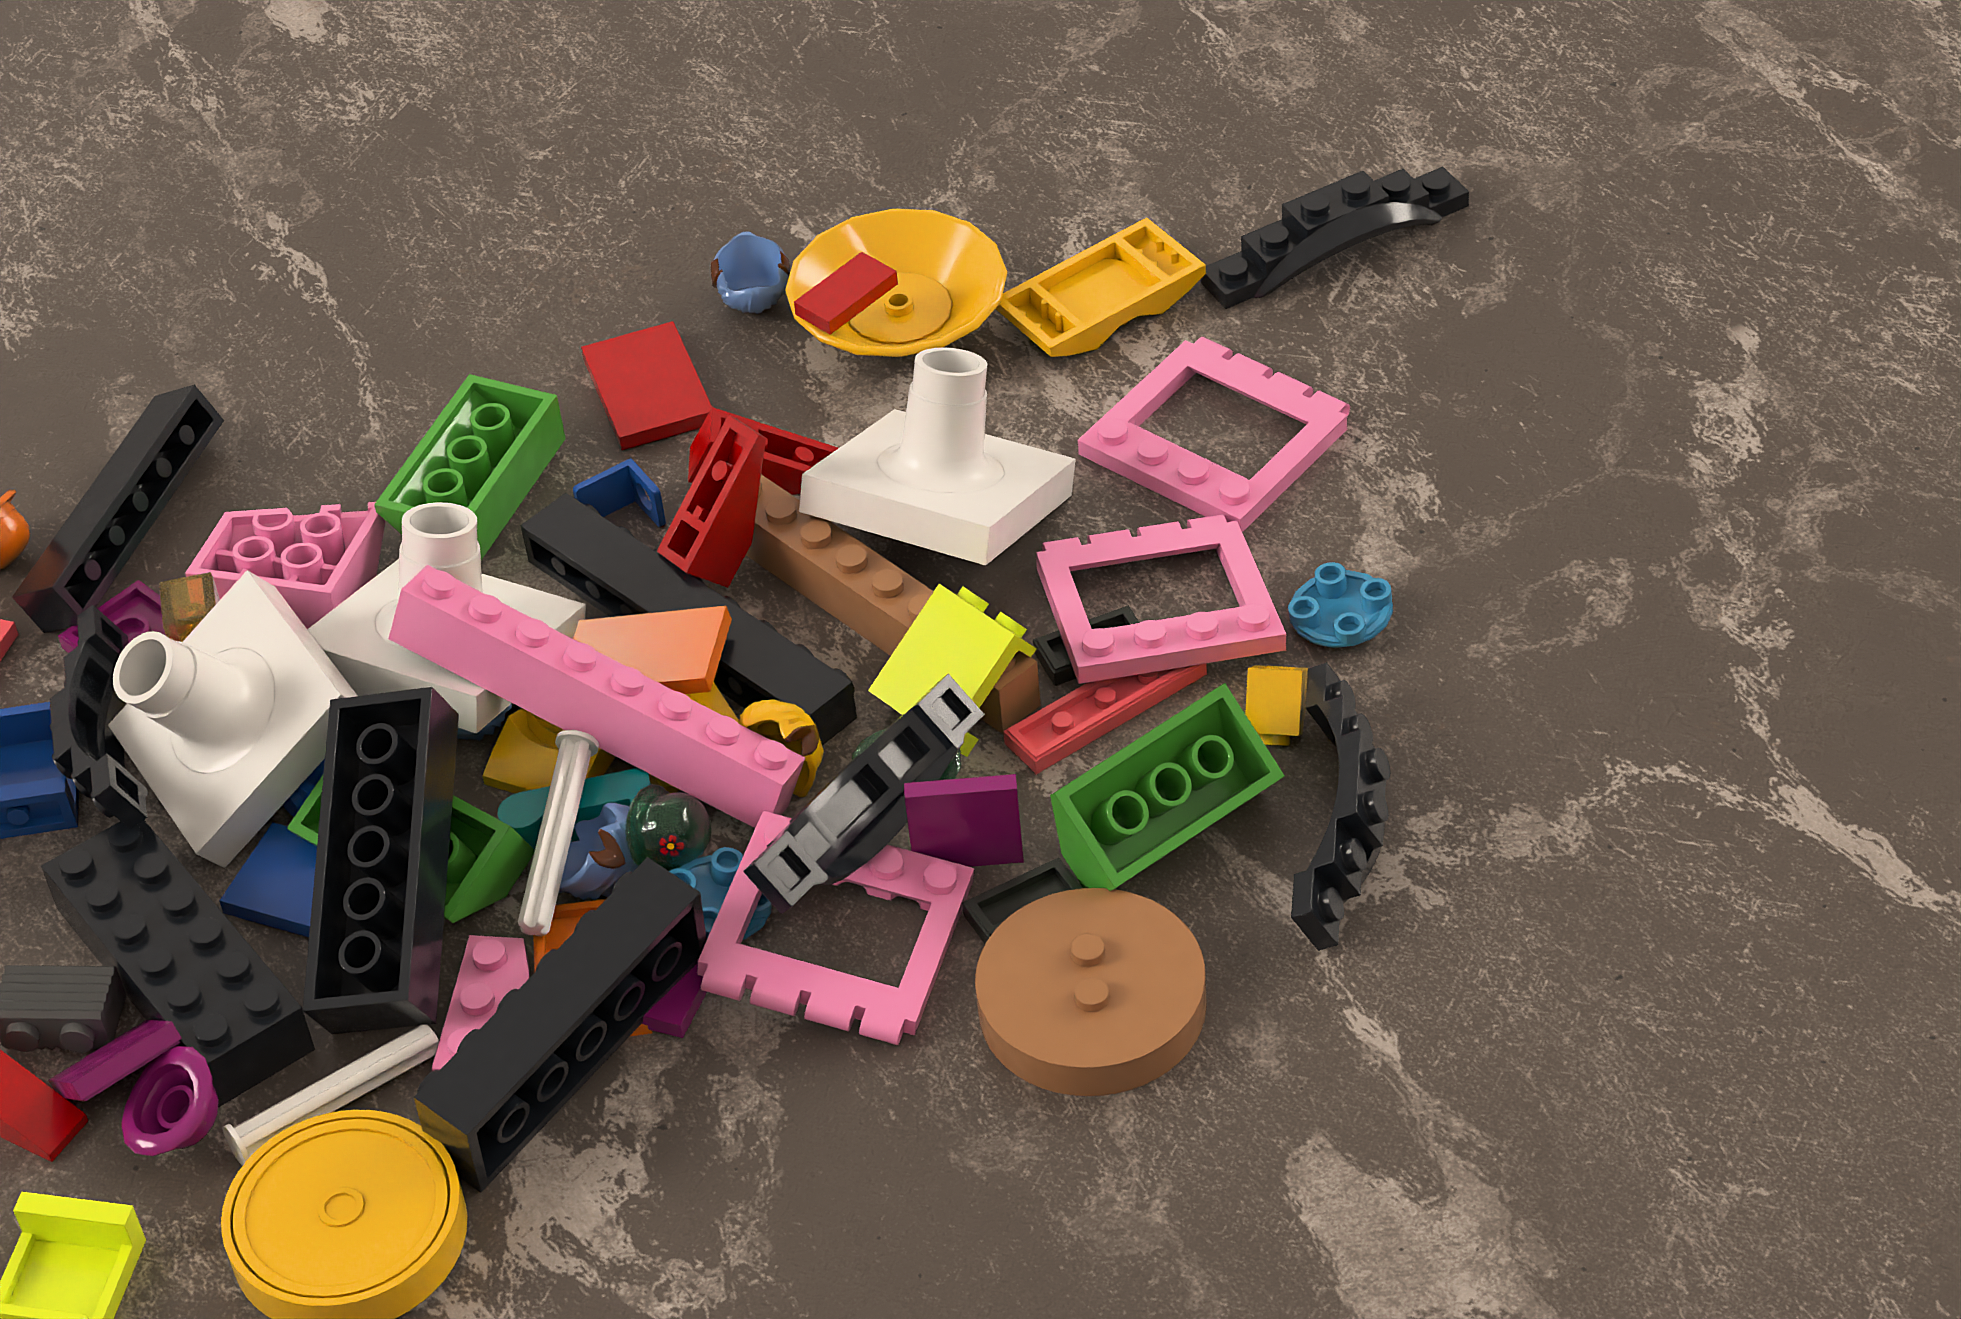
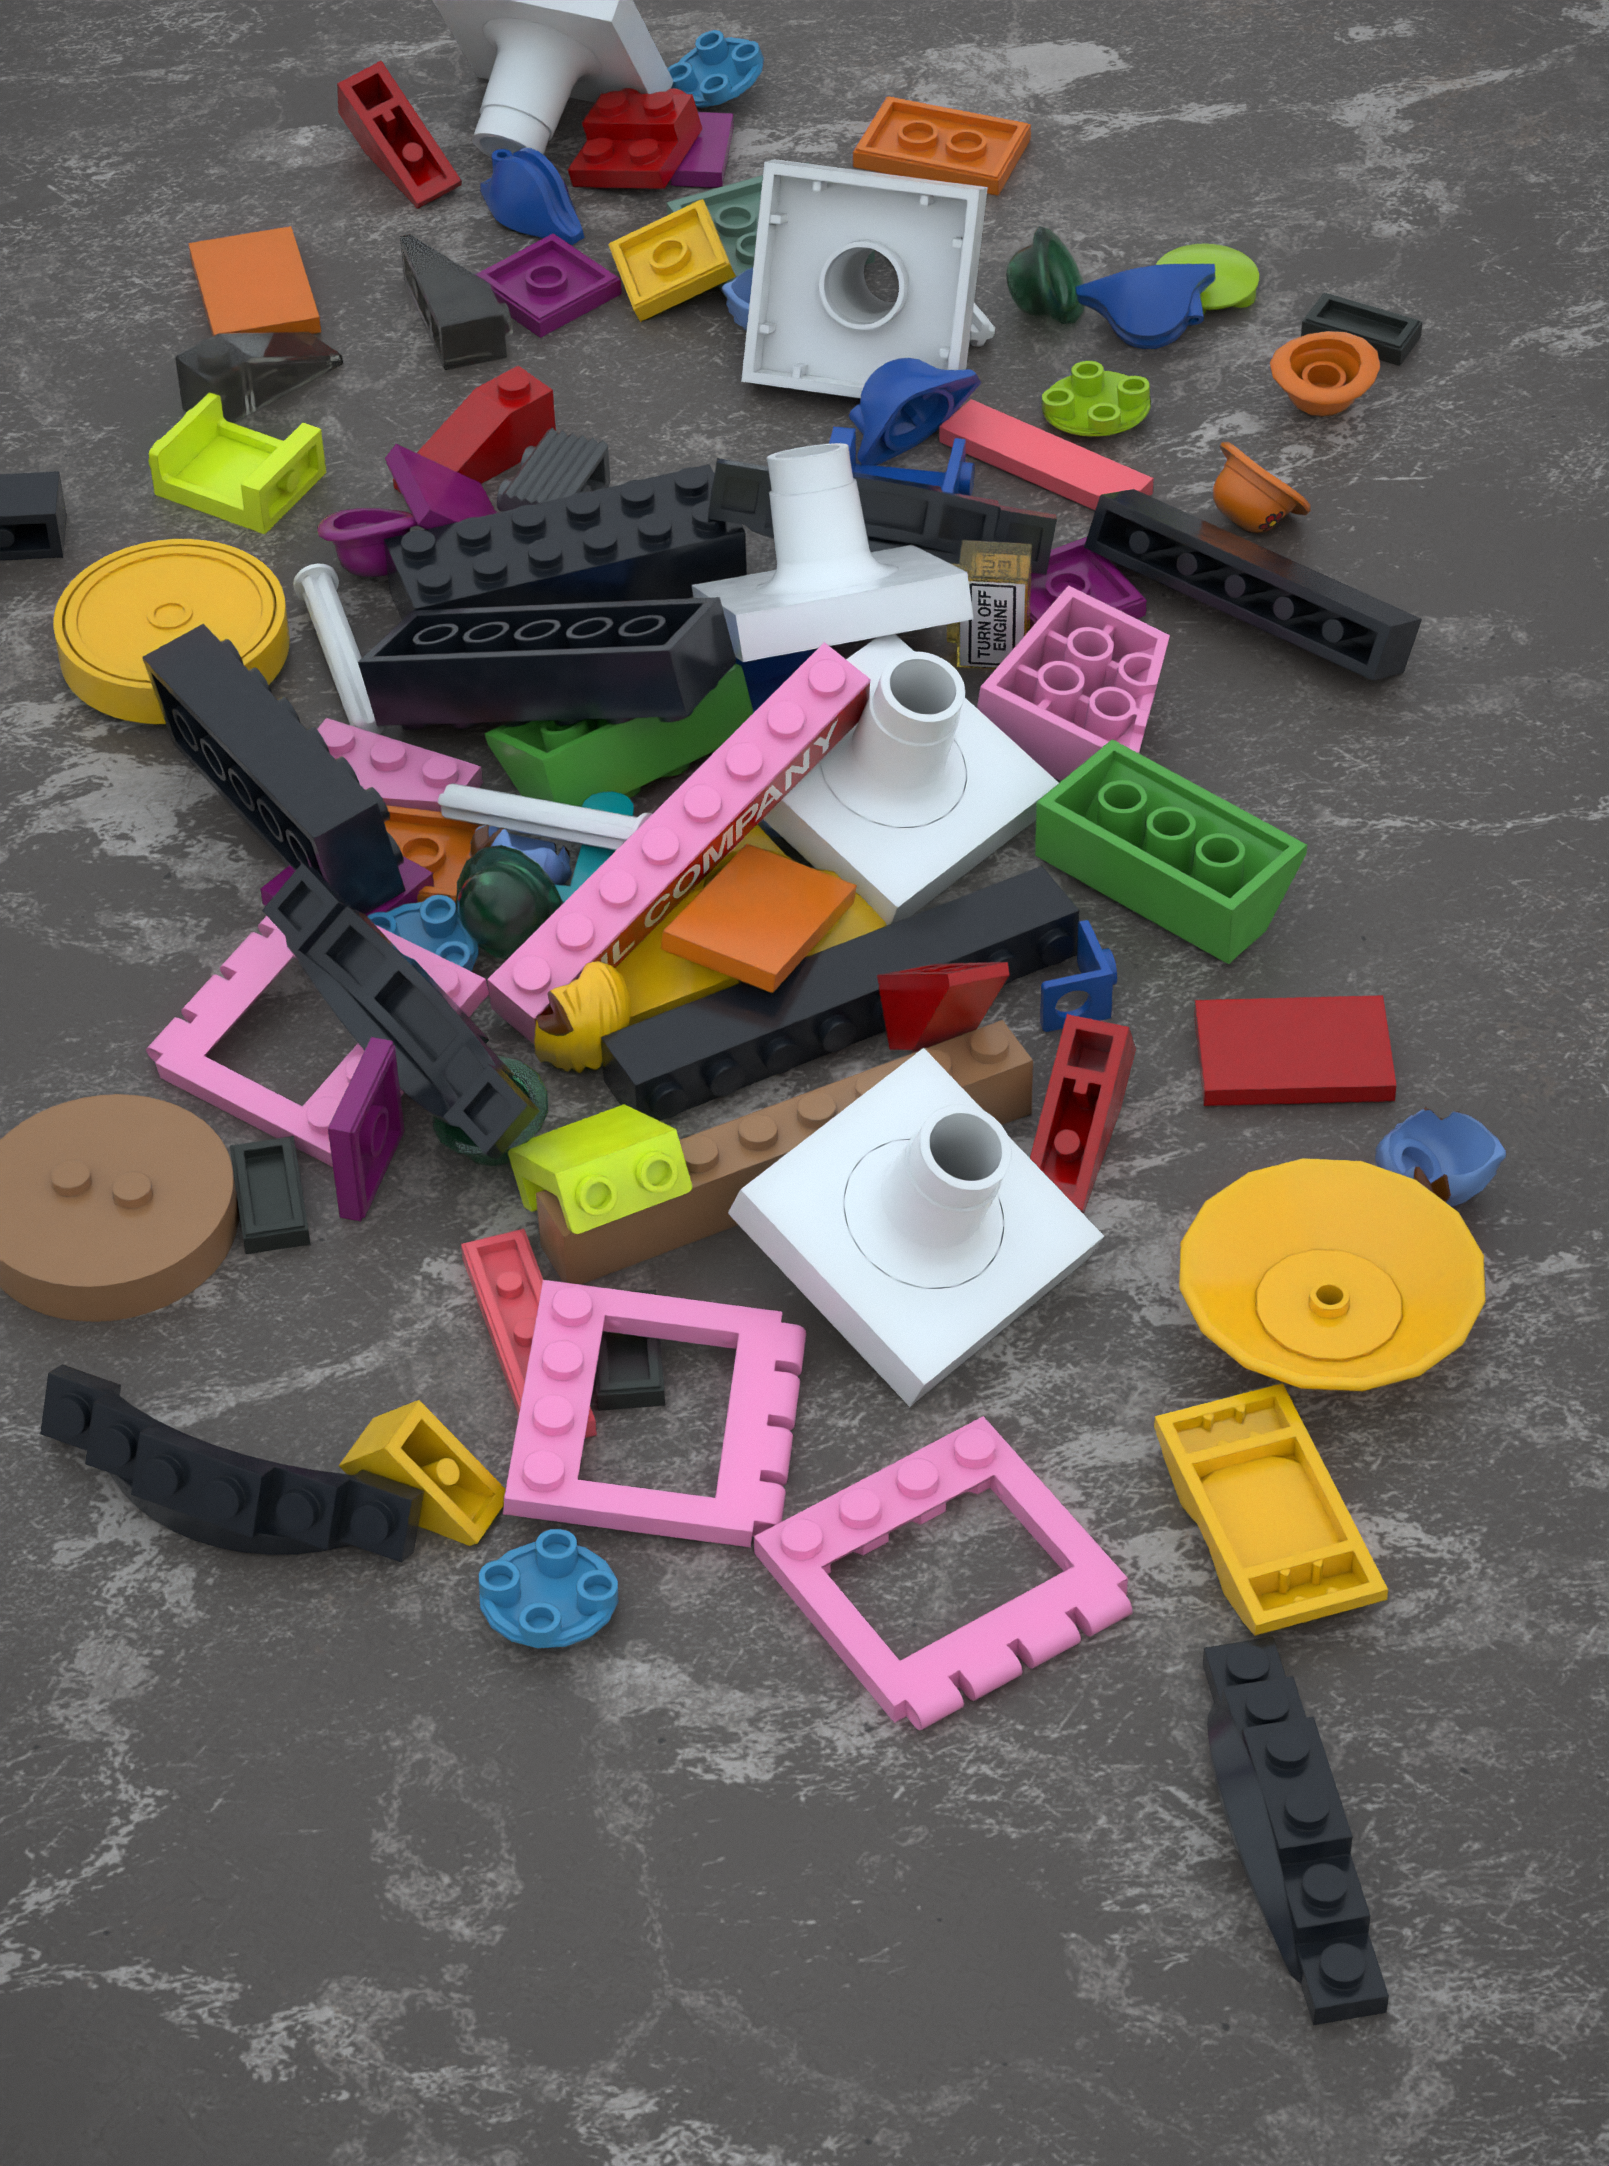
camera: 105 degrees right, 0 degrees up
(845, 293) = (1306, 1201): red tile -> none
(1161, 790) = (291, 1301): bright green slope -> none

